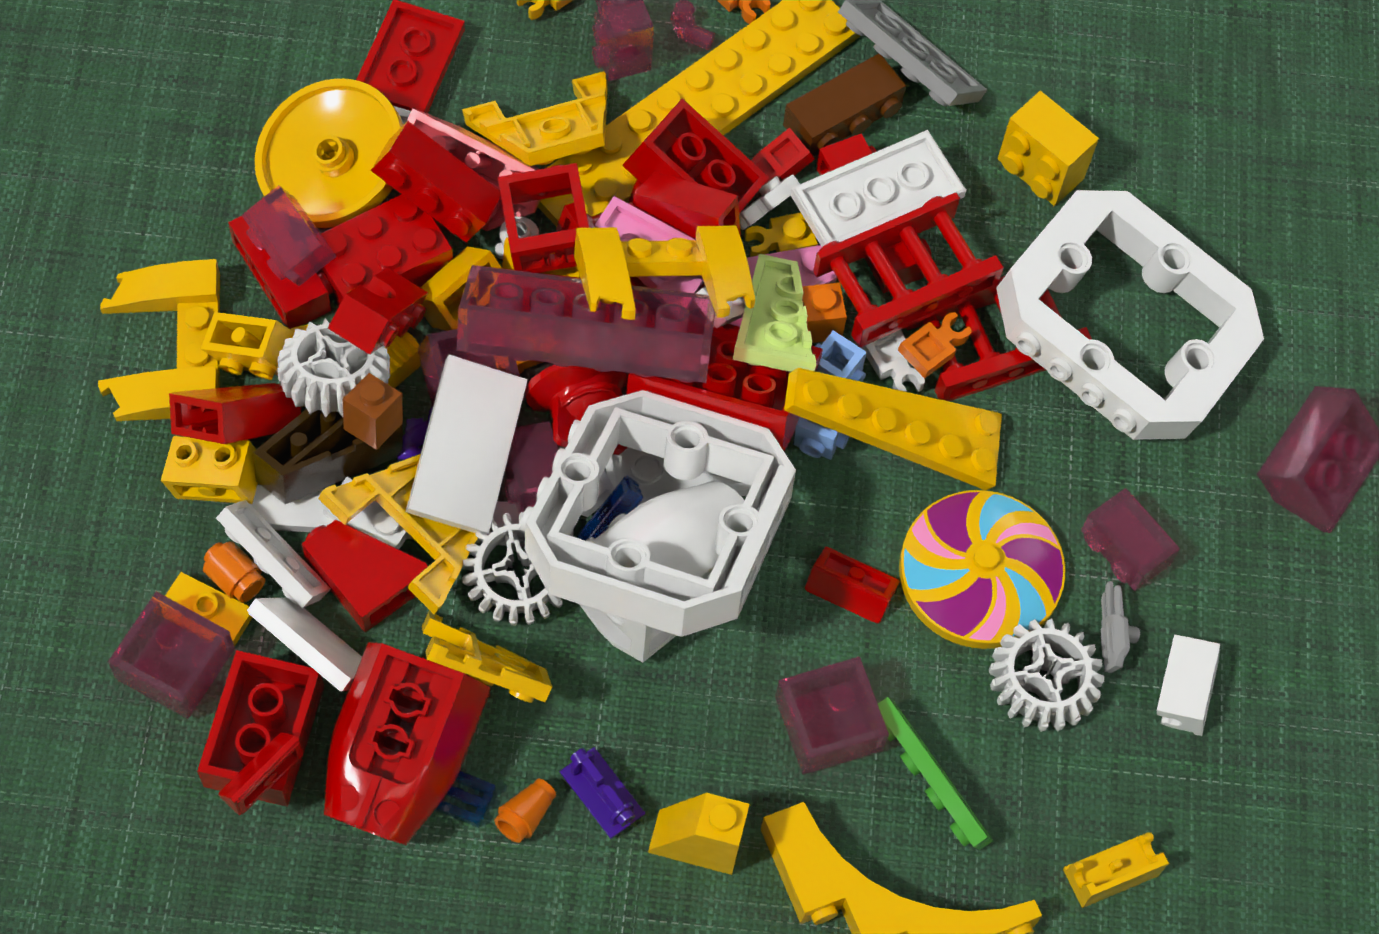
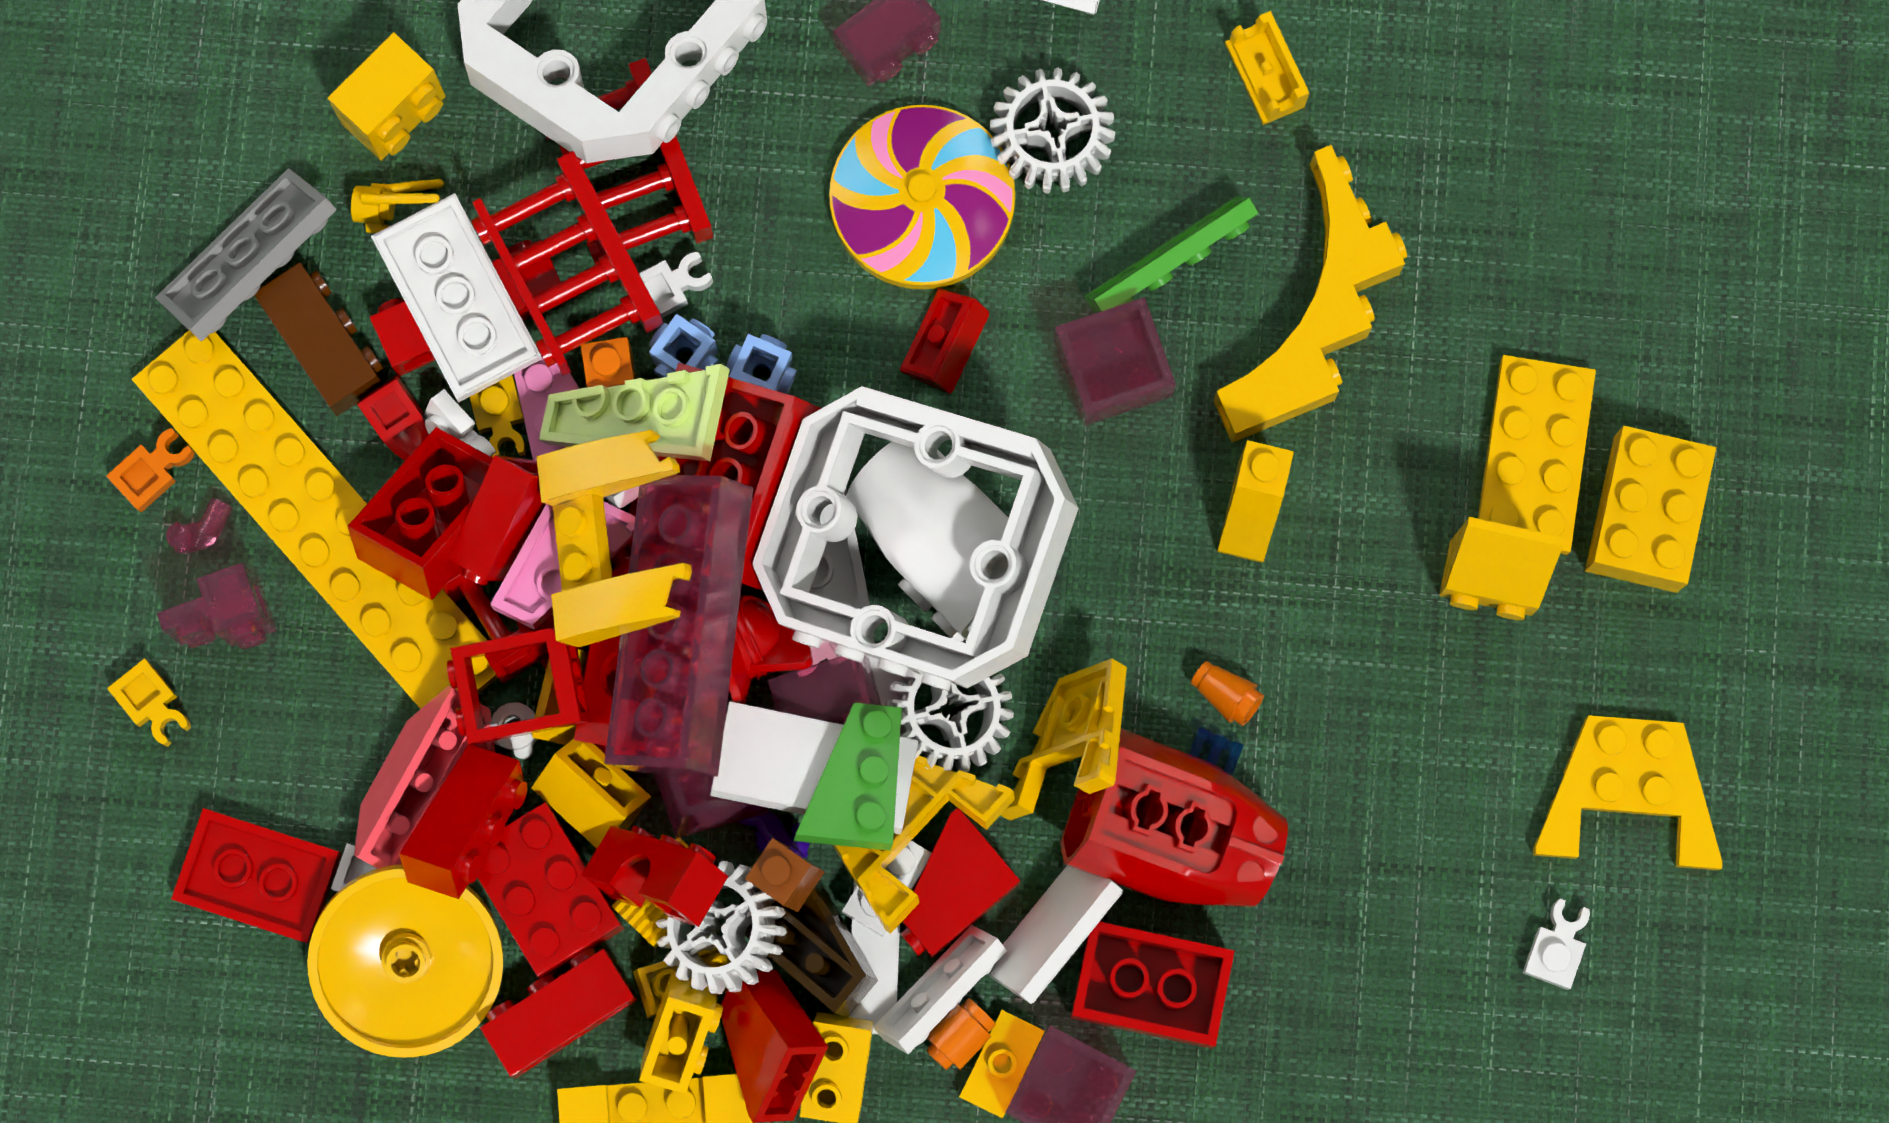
camera: 85 degrees left, 15 degrees up
(262, 772) = (1218, 974): red slope -> none
(287, 236) = (543, 996): clear pink piece -> none
(450, 473) = (859, 783): none -> bright green wing
(551, 131) = (375, 691): yellow wing -> none
(601, 791) = (1202, 611): dark purple hinge -> none
(622, 500) = (879, 589): clear blue tile -> none
(920, 428) = (771, 254): yellow wing -> none
(933, 347) = (658, 241): orange plate -> none
(959, 150) = (377, 202): none -> yellow plant
(1115, 631) = (994, 53): light grey piece -> none

